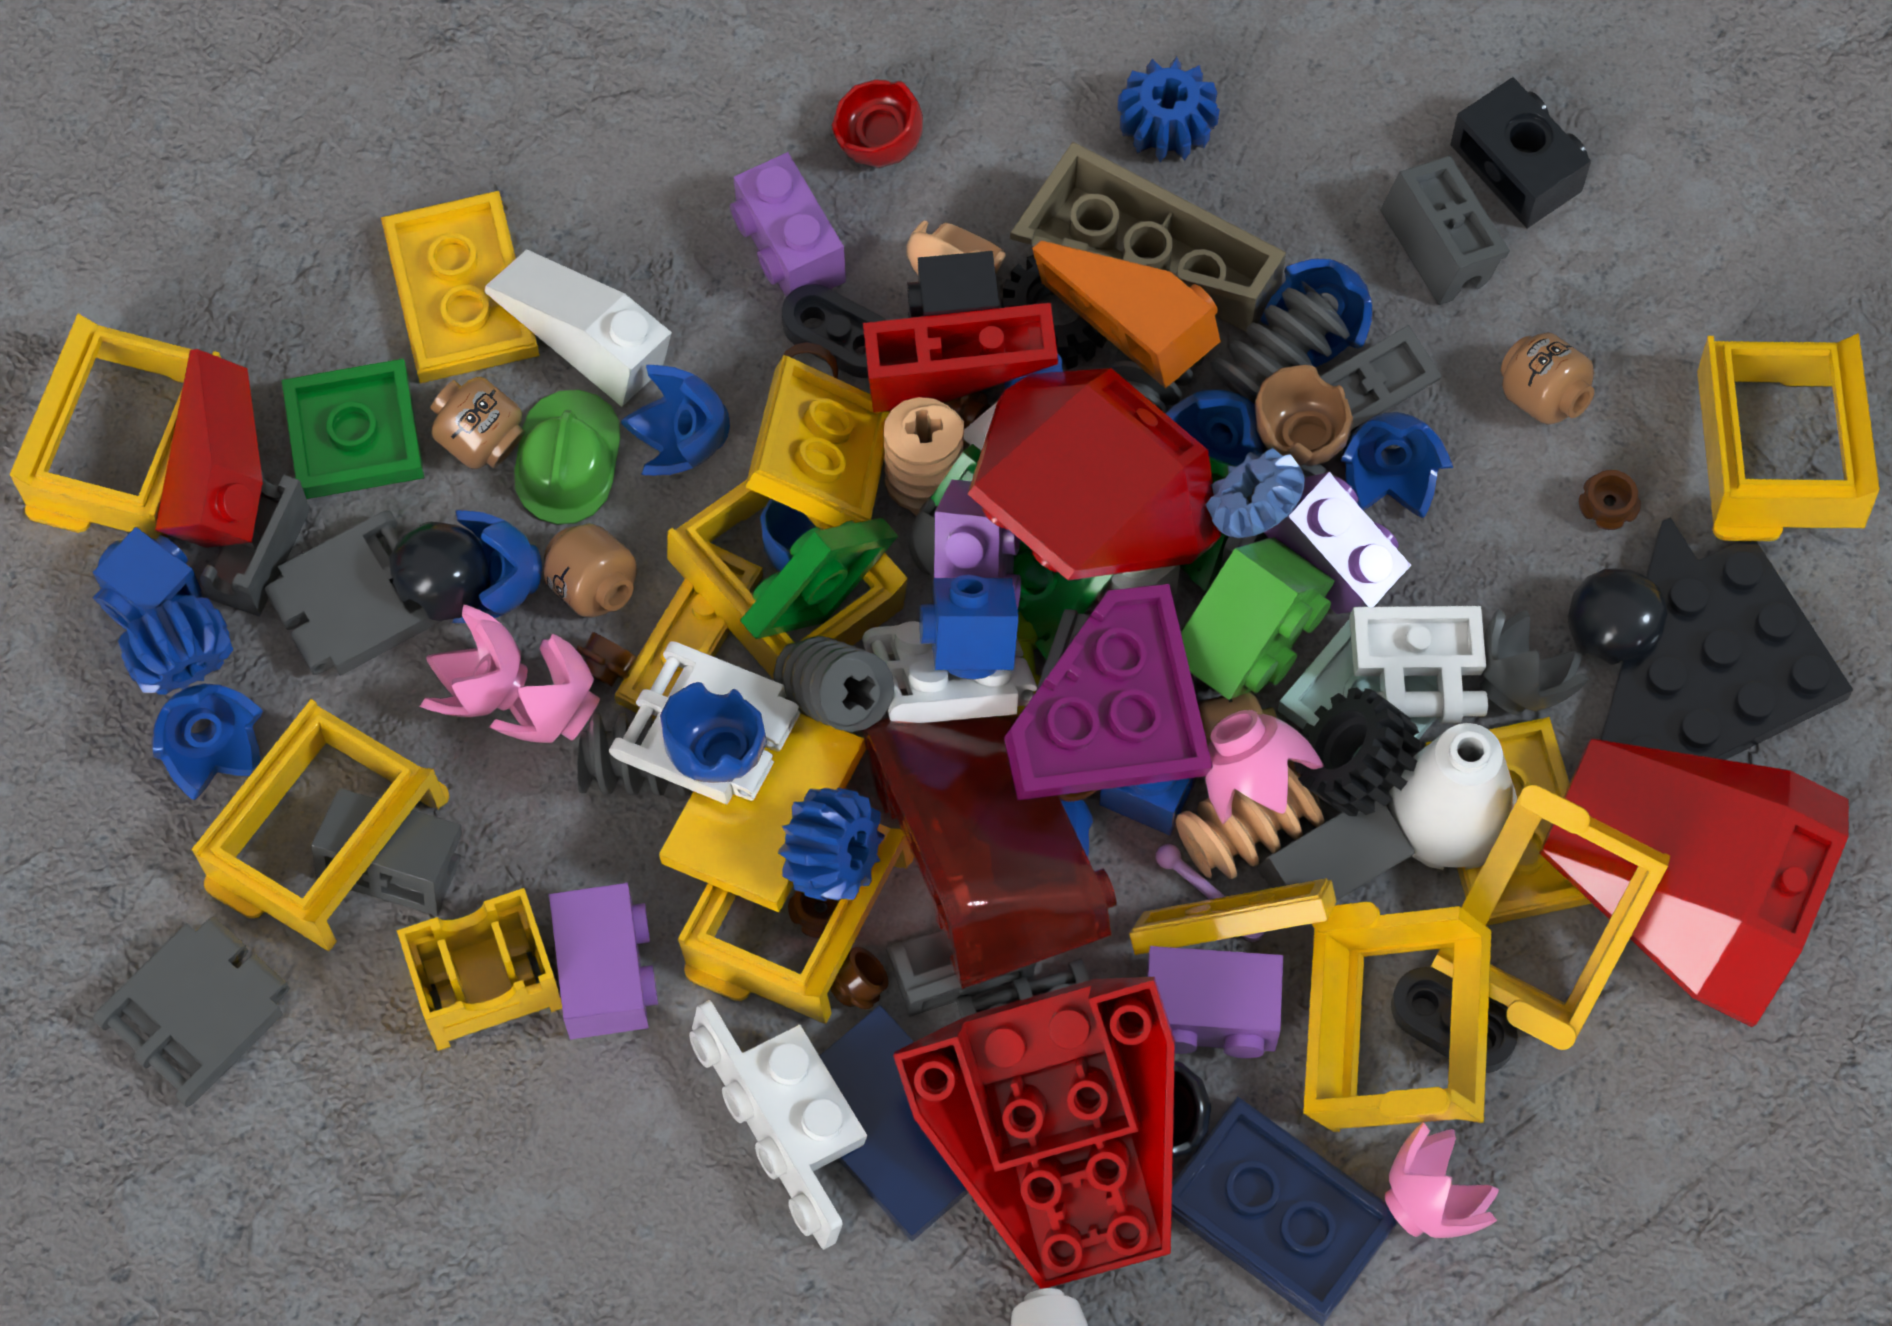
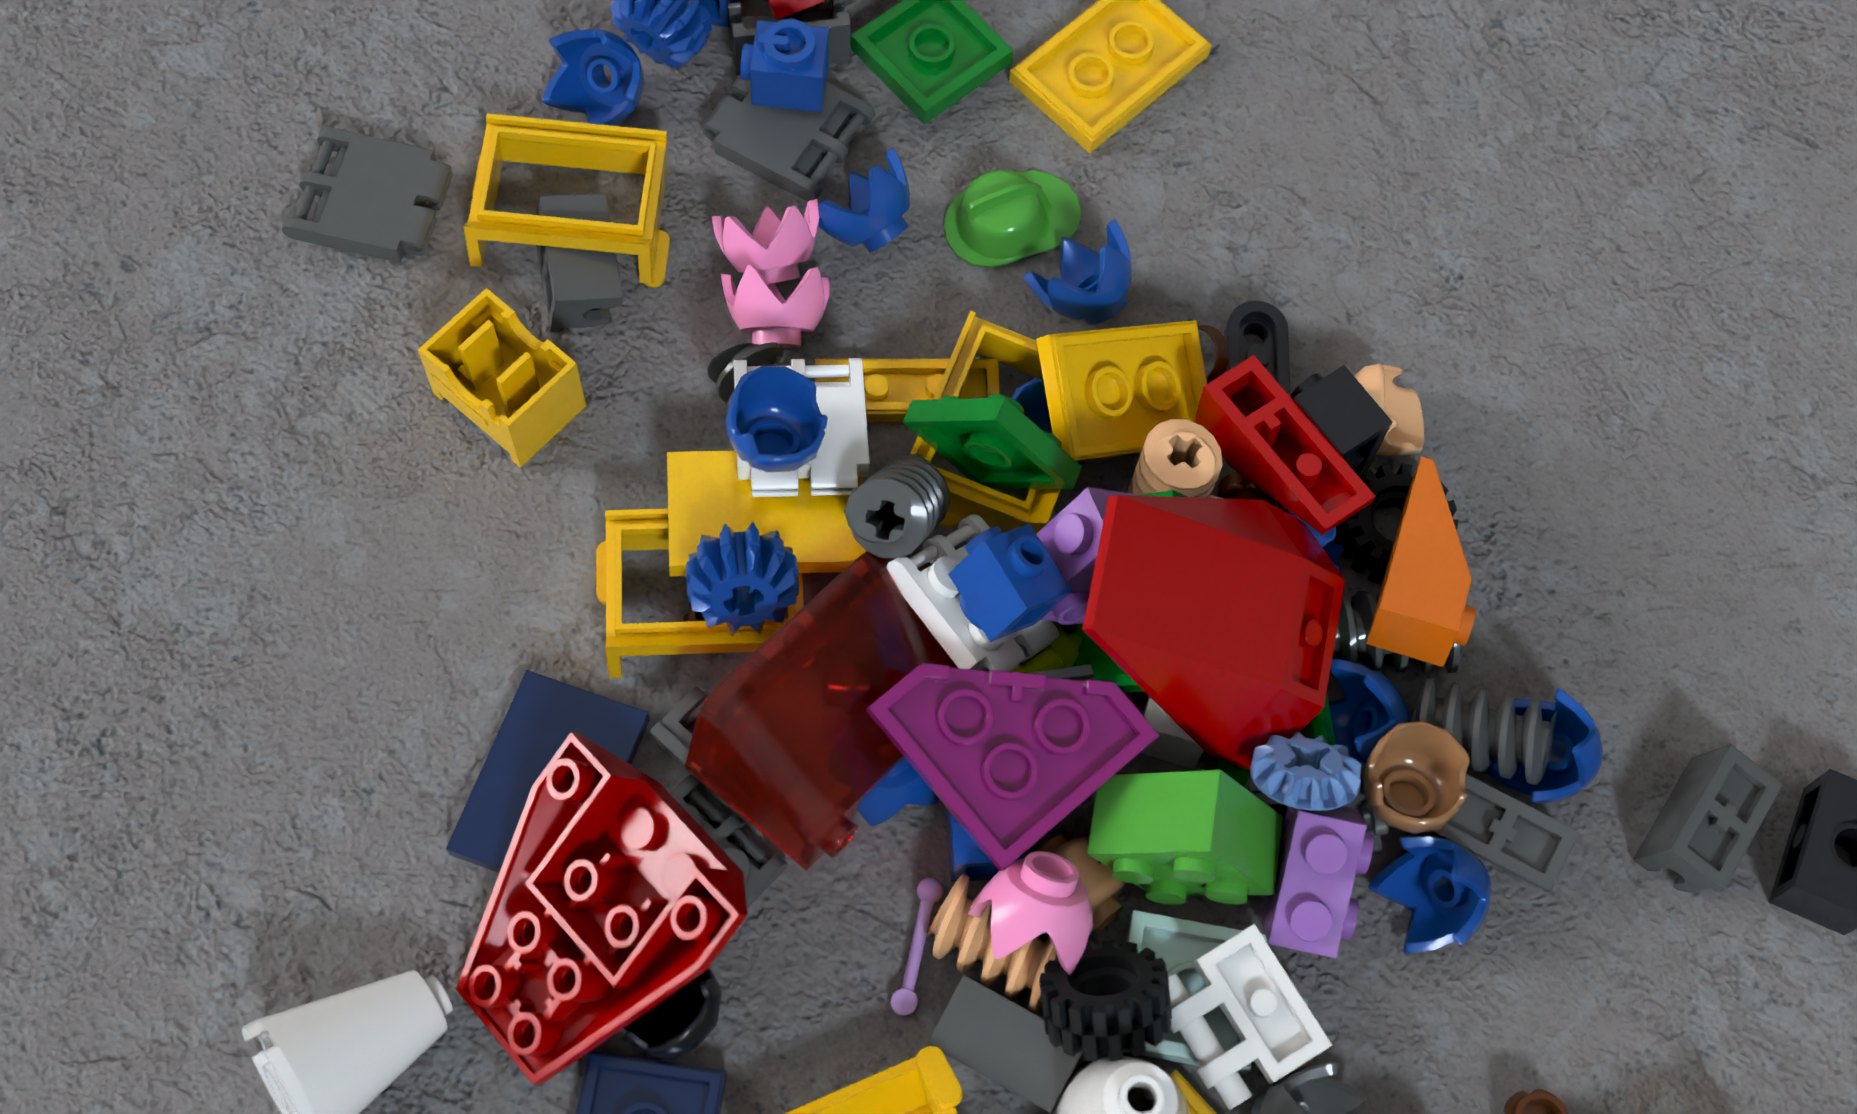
camera: 55 degrees right, 0 degrees up
(316, 554) = (787, 65): none -> blue brick
(440, 569) = (836, 164): black hair -> none
(476, 423) = (990, 130): medium nougat head -> none
(583, 322) = (1129, 160): white slope -> none
(589, 570) = (913, 277): medium nougat head -> none
(600, 960) = (561, 465): medium lavender brick -> none
(606, 659) = (842, 334): reddish brown plate -> none
(787, 226) = (1322, 268): medium lavender brick -> none
(789, 1108) = (511, 687): white bracket -> none
(860, 980) = (673, 683): reddish brown plate -> none
(878, 123) = (1470, 289): red hair -> none
(1120, 215) = (1513, 544): dark tan wedge -> none
(1168, 109) = (1655, 517): blue gear -> none
(1220, 998) = (799, 997): medium lavender brick -> none
(1234, 916) = (887, 974): yellow tile -> none
(1547, 378) = (1621, 996): medium nougat head -> none

